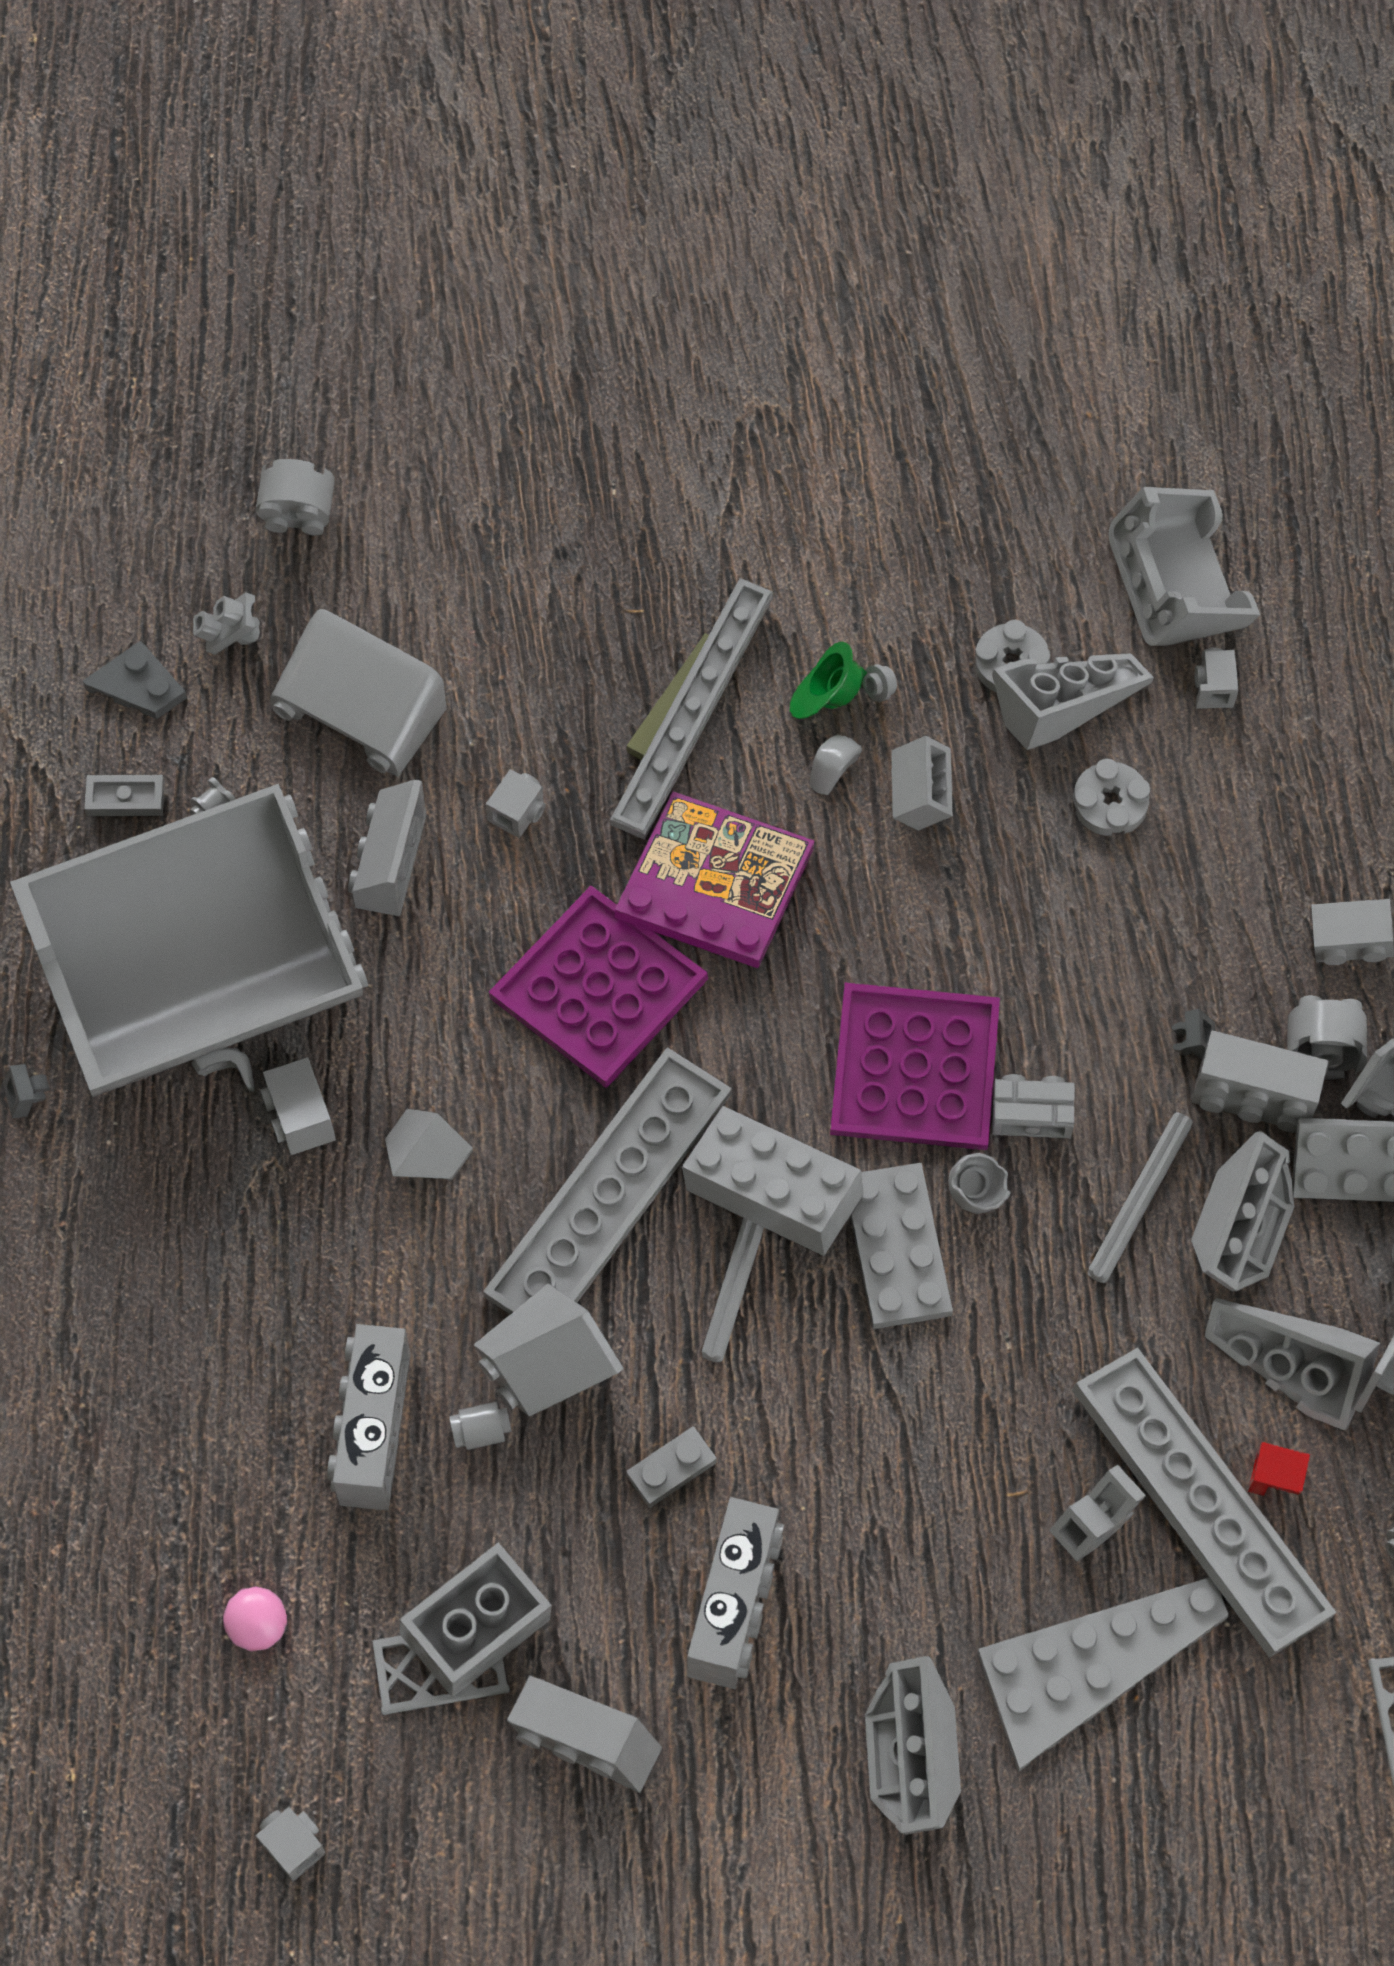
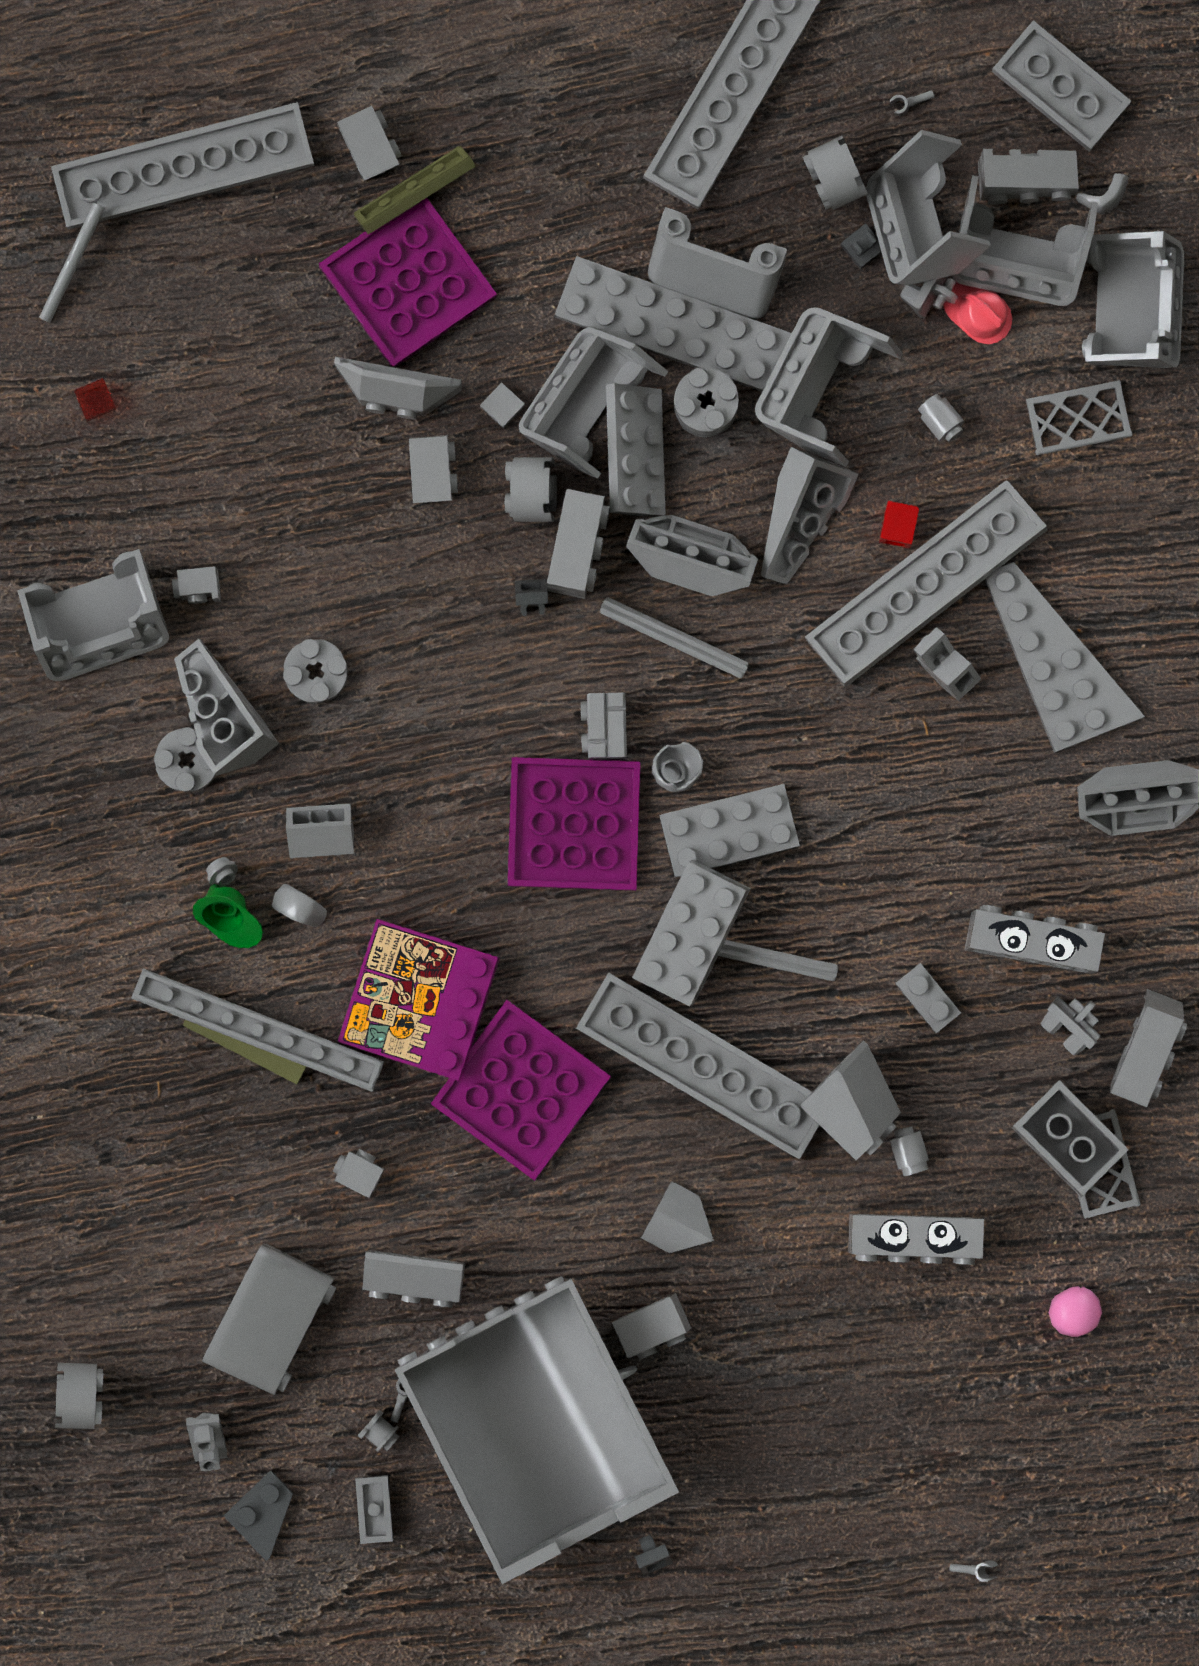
camera: 90 degrees left, 20 degrees up
(627, 1643) = (1078, 1023): none -> light grey hips

